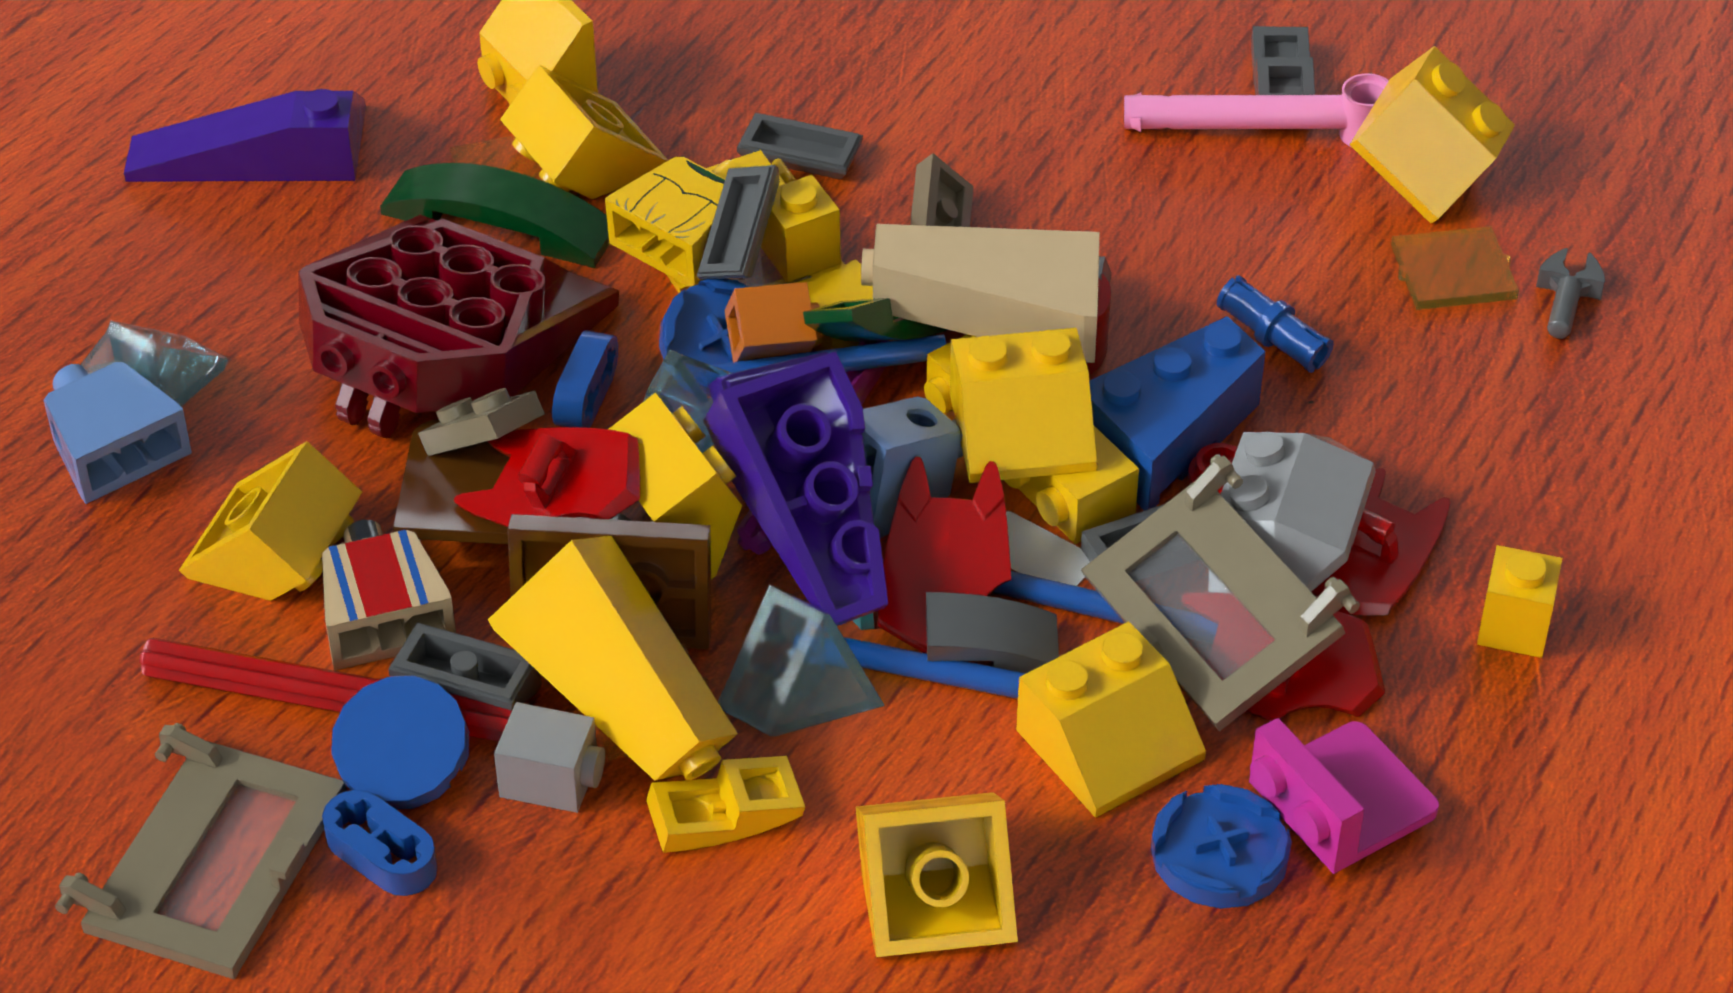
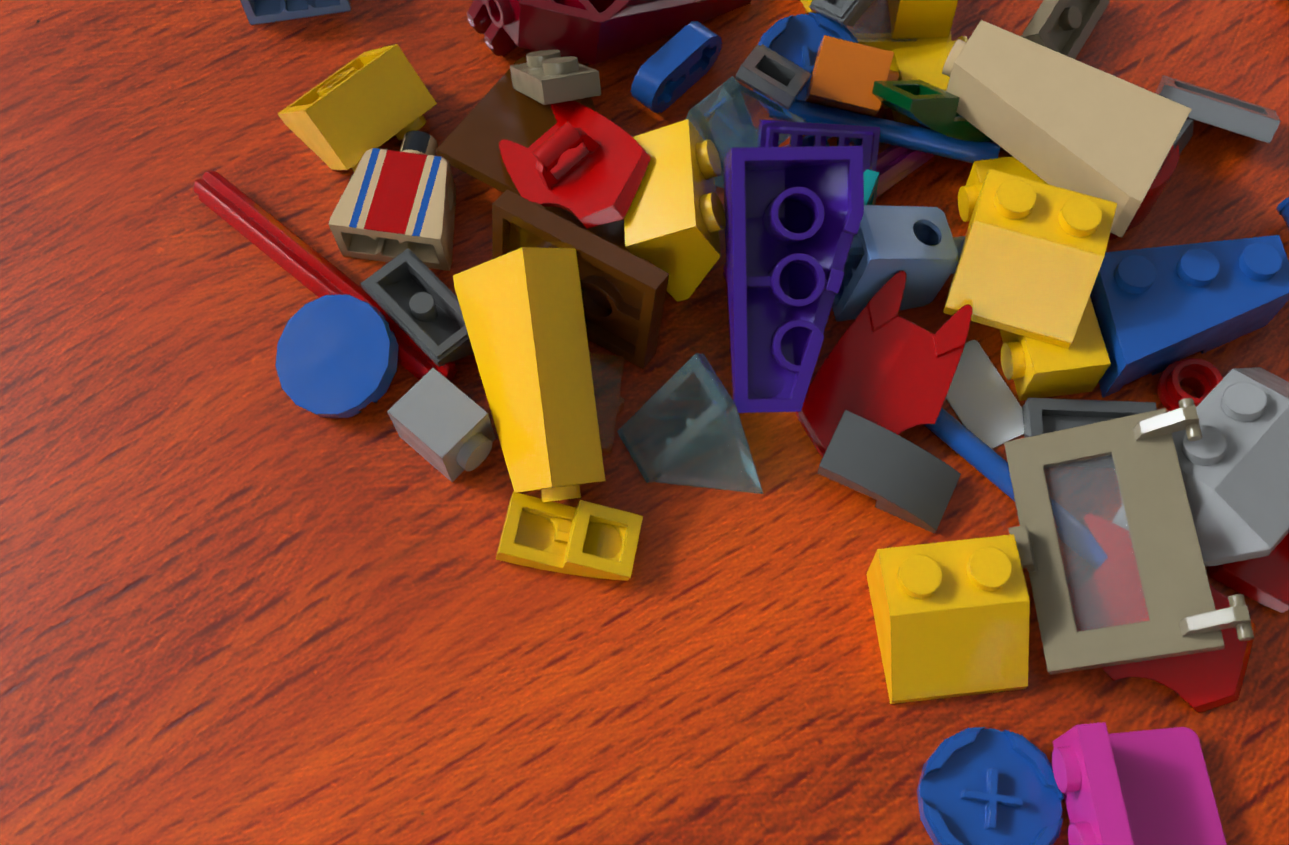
camera: 30 degrees right, 20 degrees up
(208, 856) = (148, 392): dark tan piece -> none
(387, 834) = (261, 446): blue beam -> none
(705, 340) = (773, 76): none -> dark grey slope
(937, 873) = (705, 707): yellow slope -> none
(952, 673) = (806, 467): blue piece -> none
(1140, 241) = (1221, 109): none -> dark grey tile

